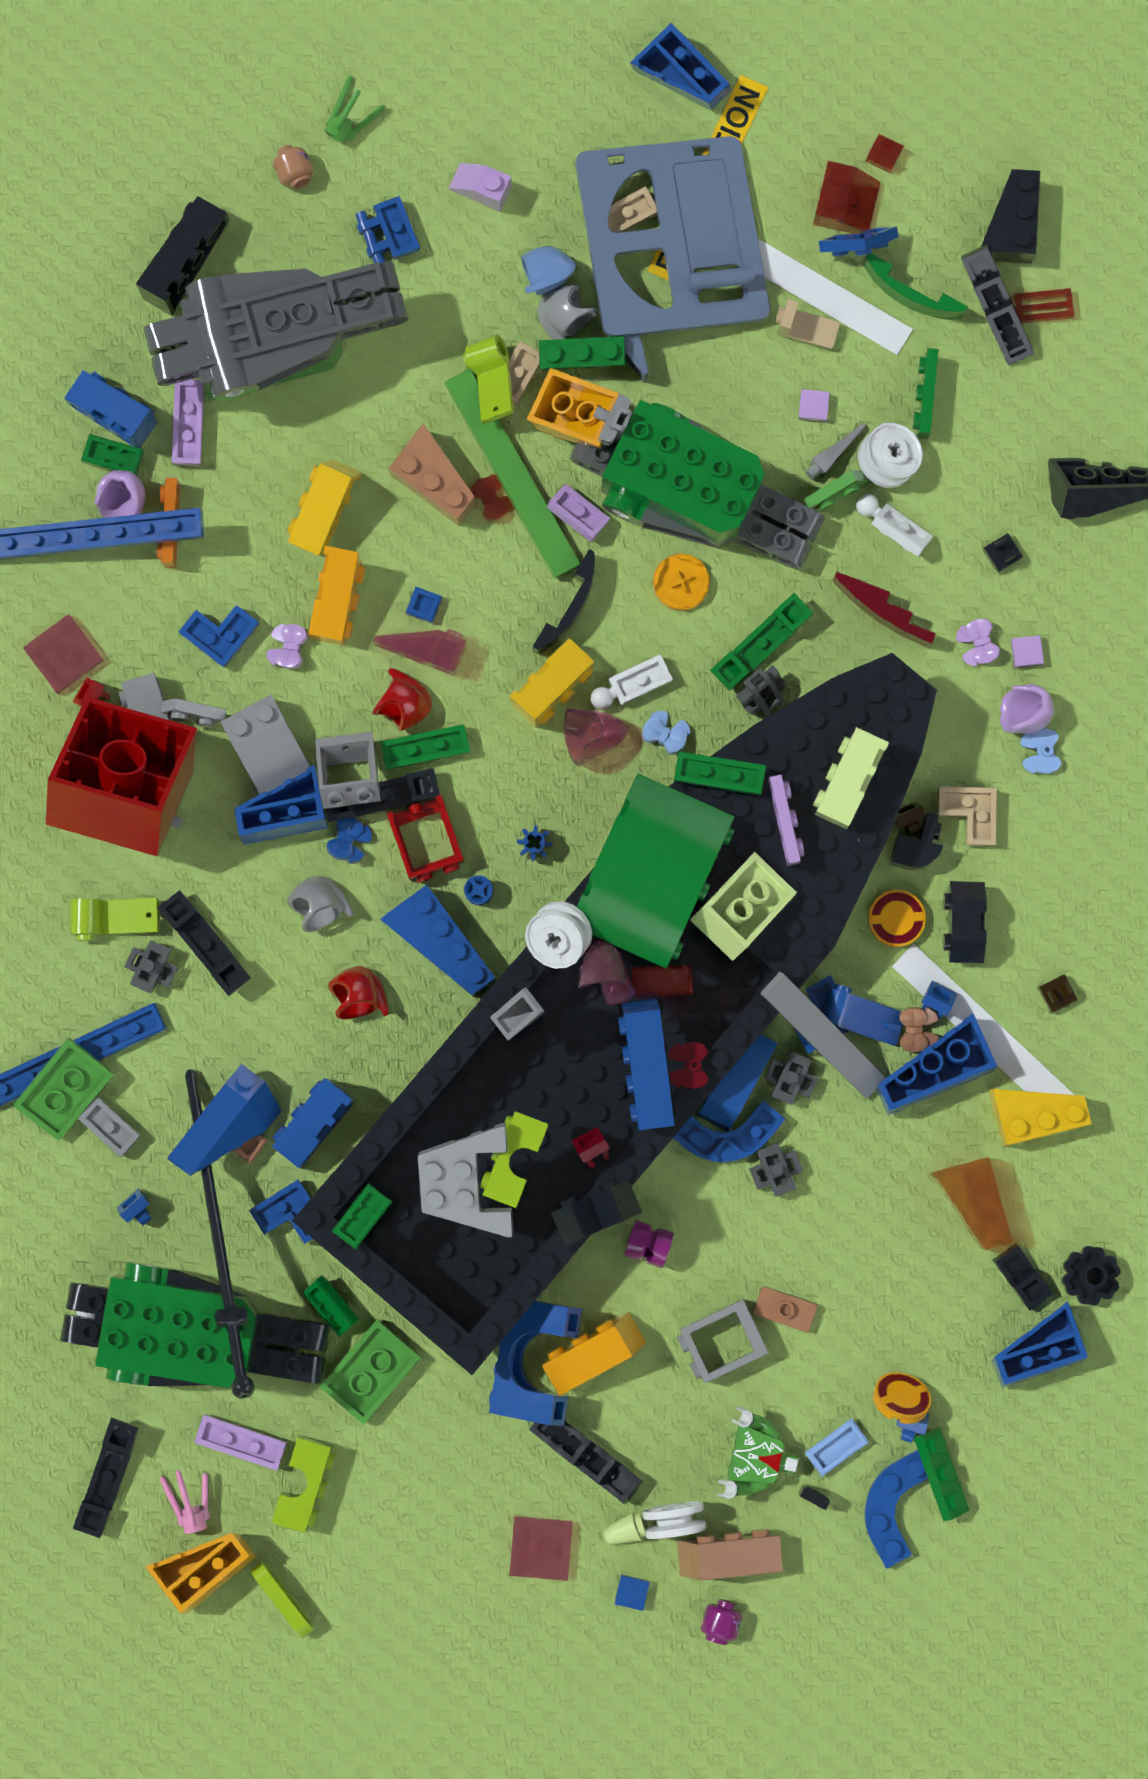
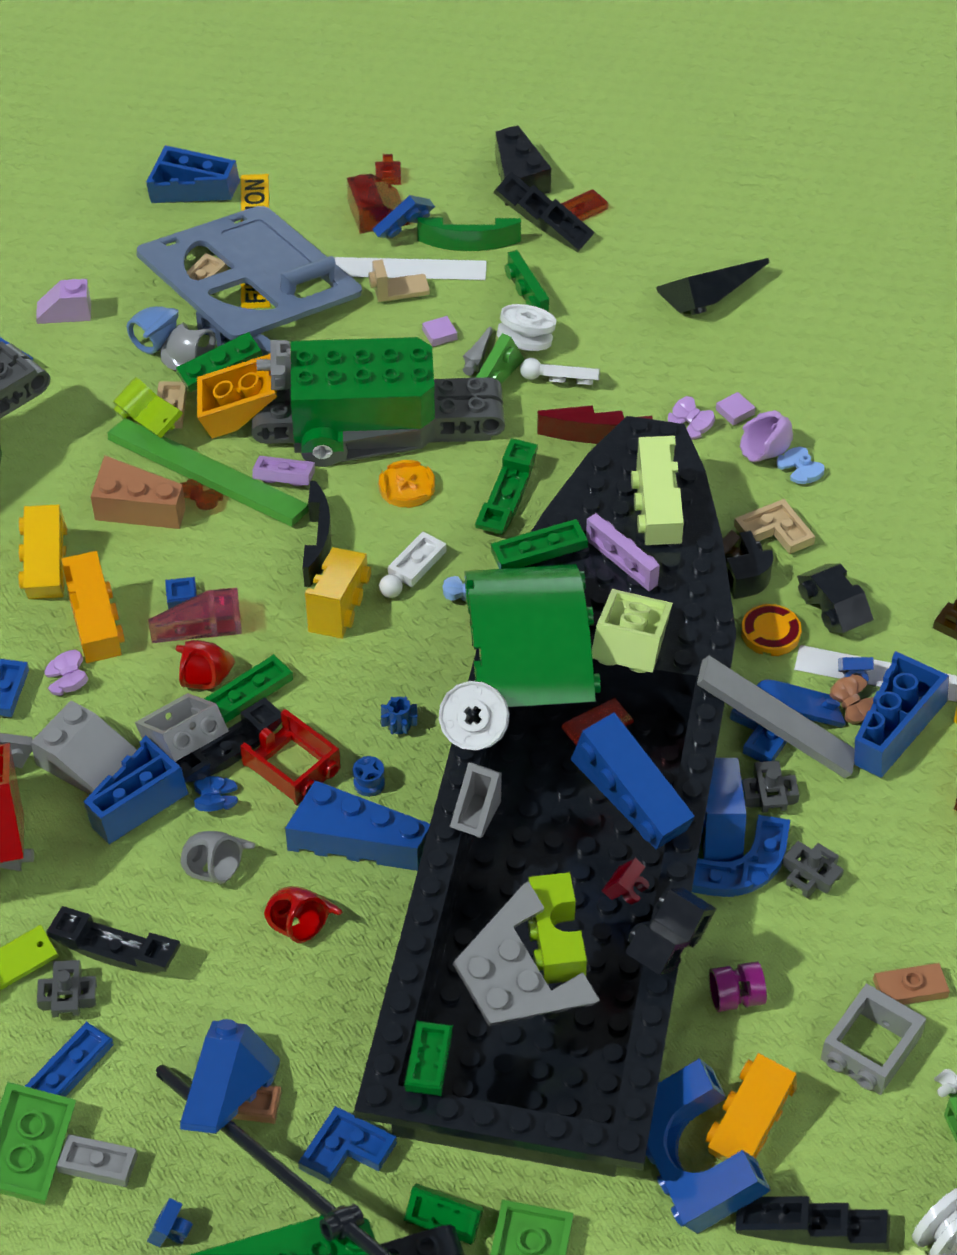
camera: 30 degrees left, 35 degrees down
(312, 1122) = (321, 1039): blue wedge -> none
(591, 733) = (397, 610): clear pink helmet -> none
(605, 965) = (545, 730): clear pink helmet -> none
(692, 1076) = (671, 766): dark red piece -> none
(760, 688) = (525, 517): dark grey piece -> none
(1002, 553) = (665, 357): black tile -> none

